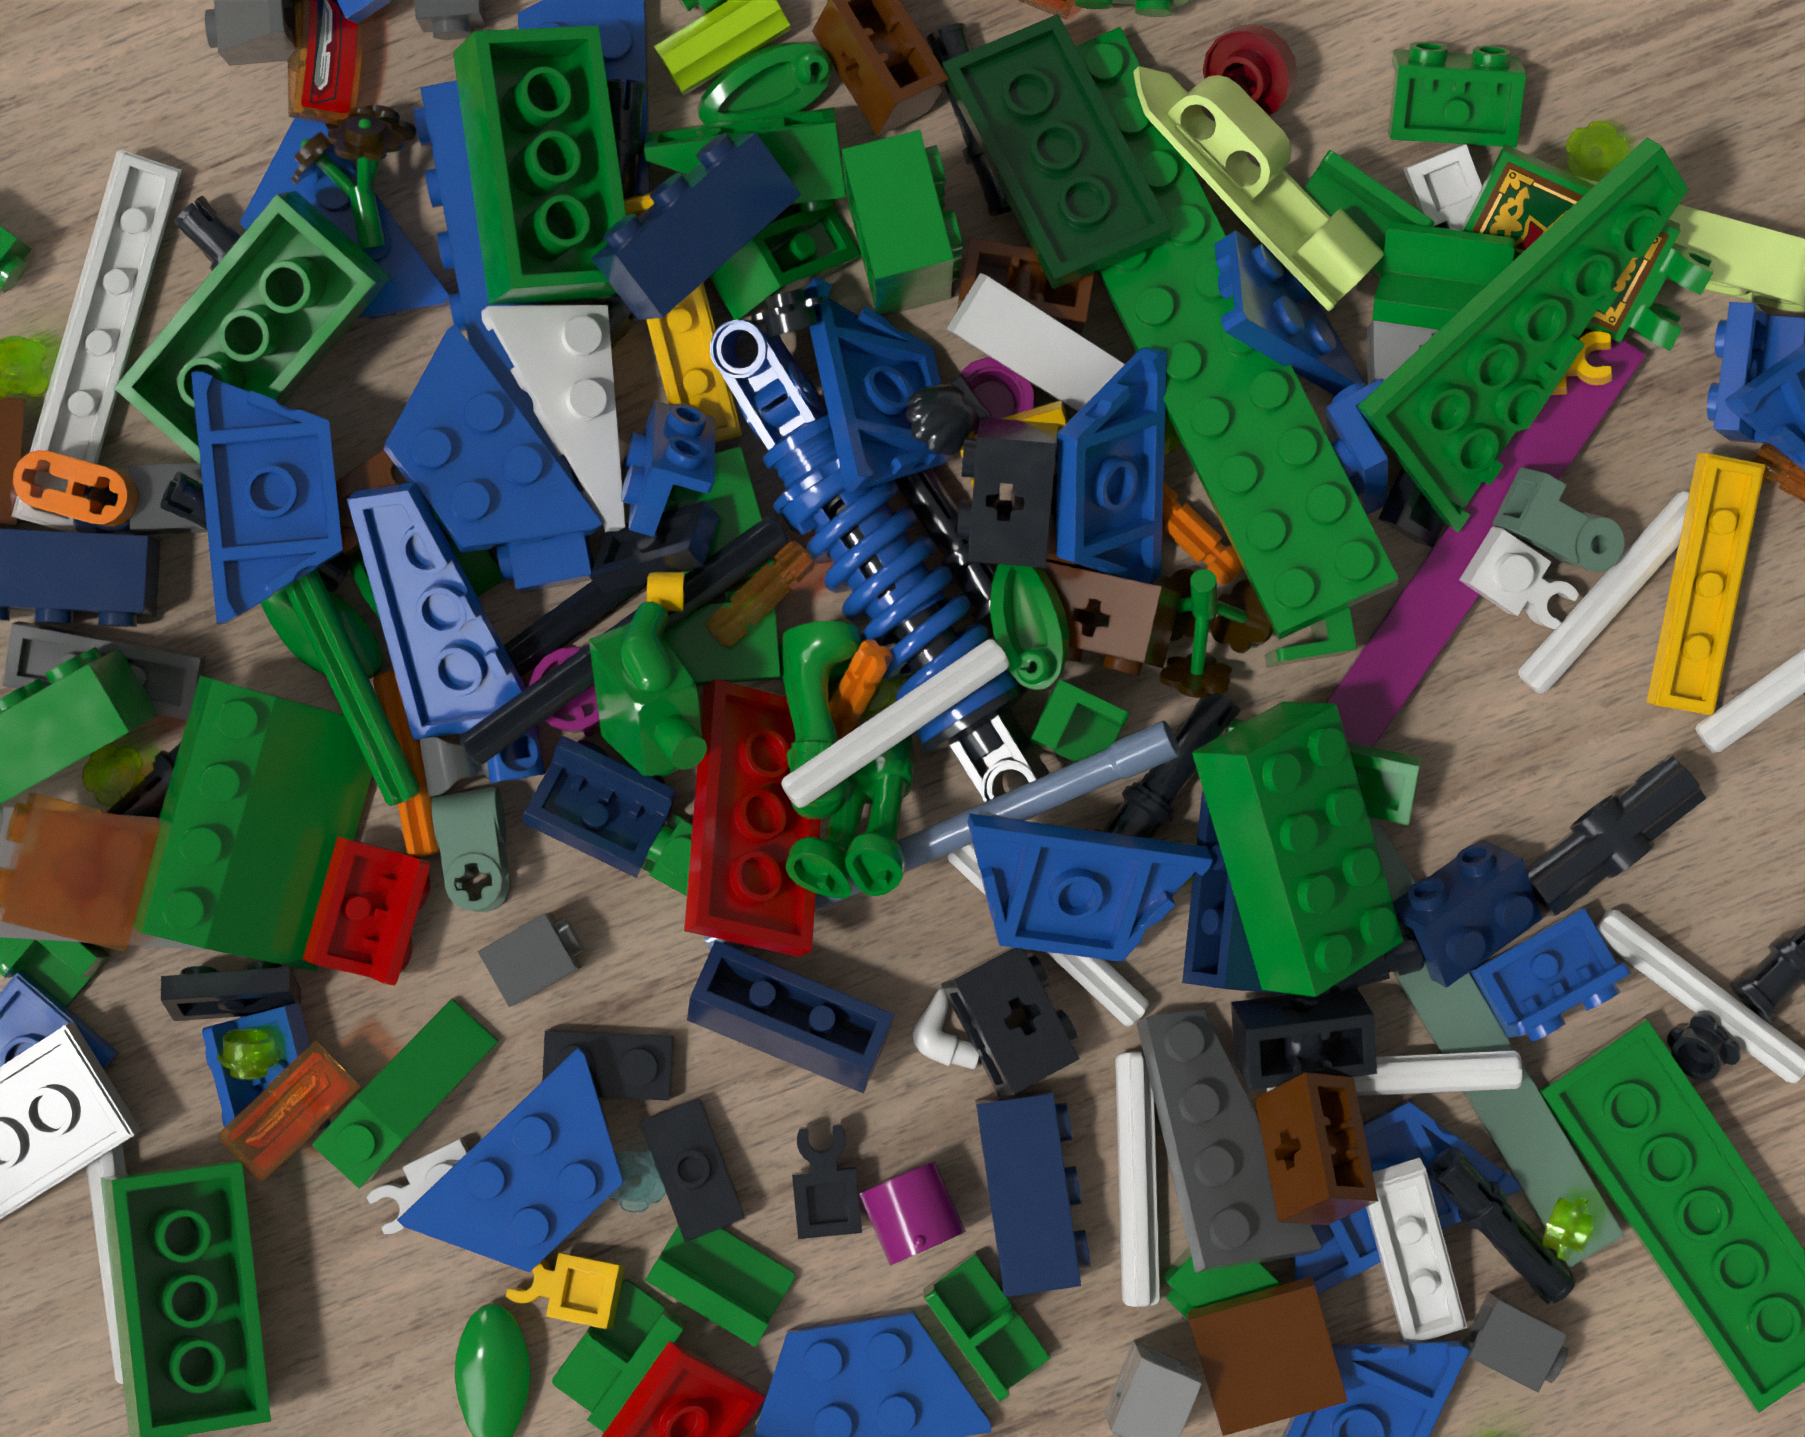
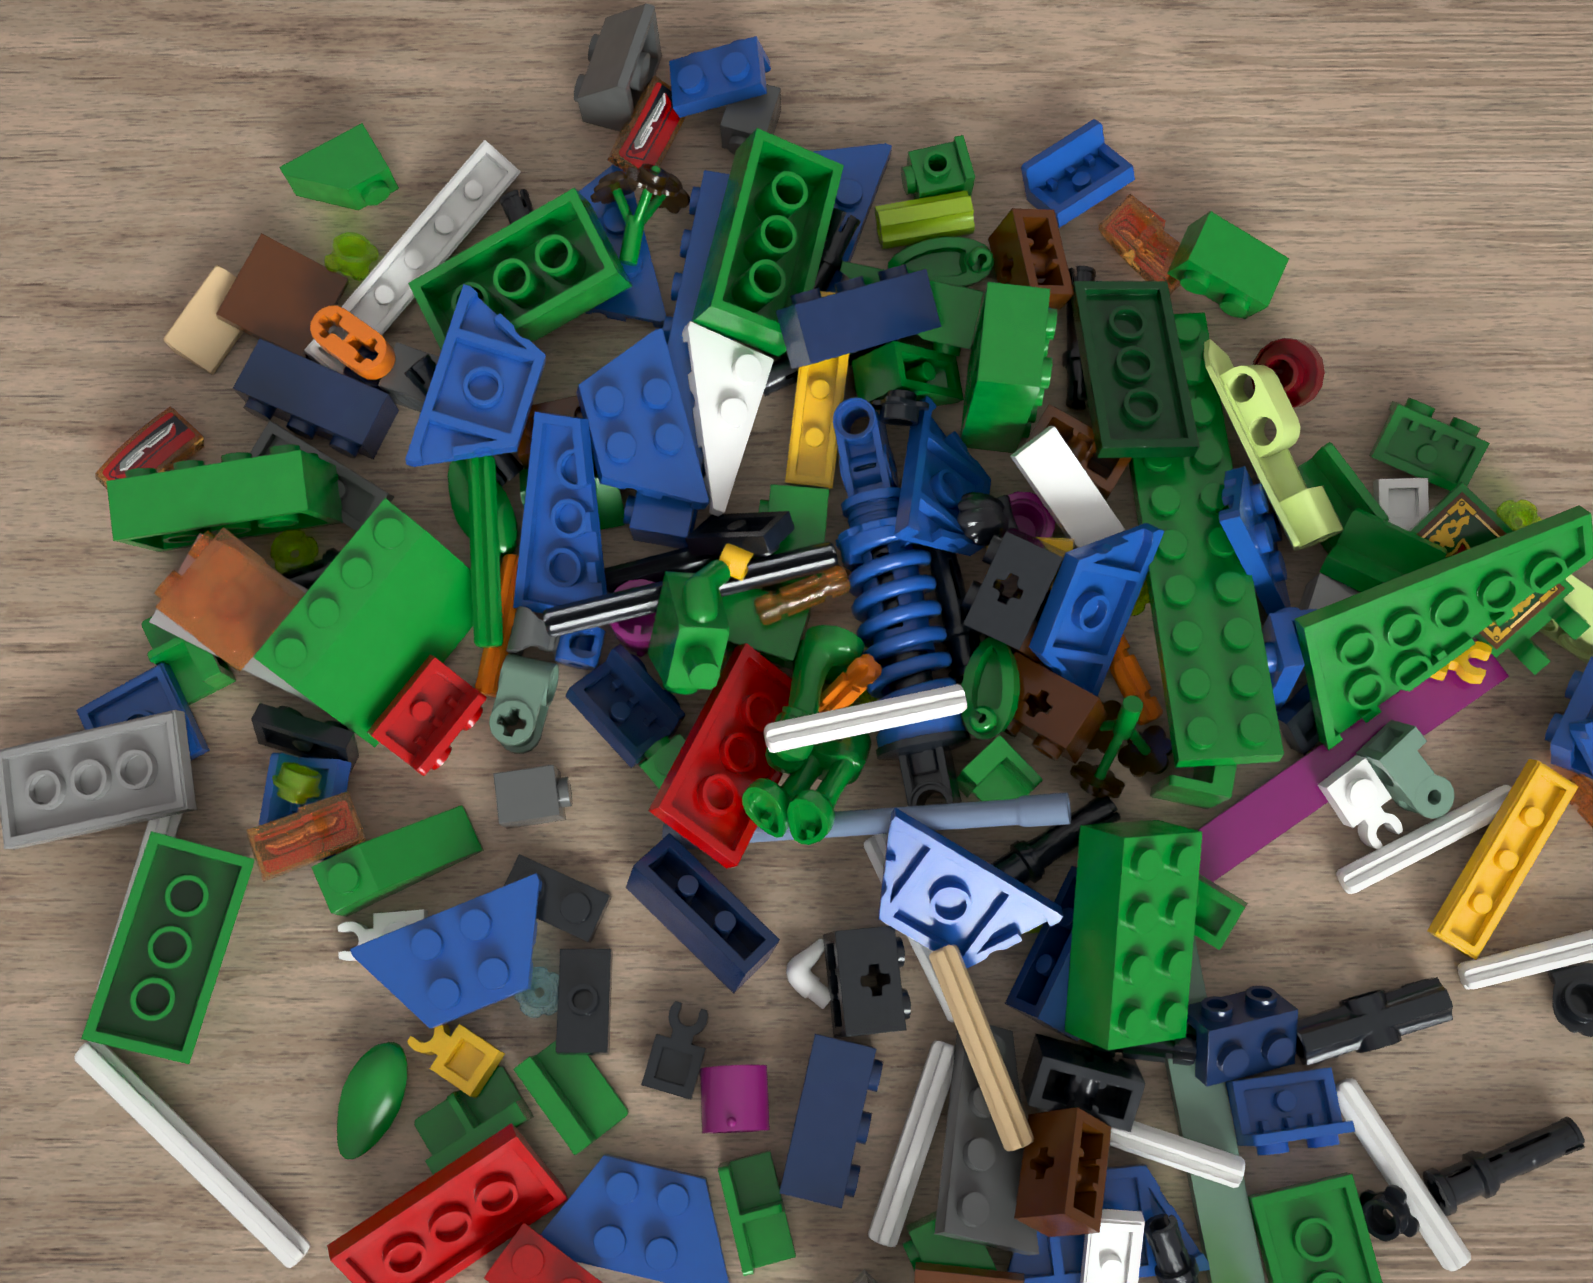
camera: 20 degrees right, 10 degrees down
(671, 450) = (785, 468): blue bracket -> none
(1172, 1045) = (981, 1048): none -> tan axle

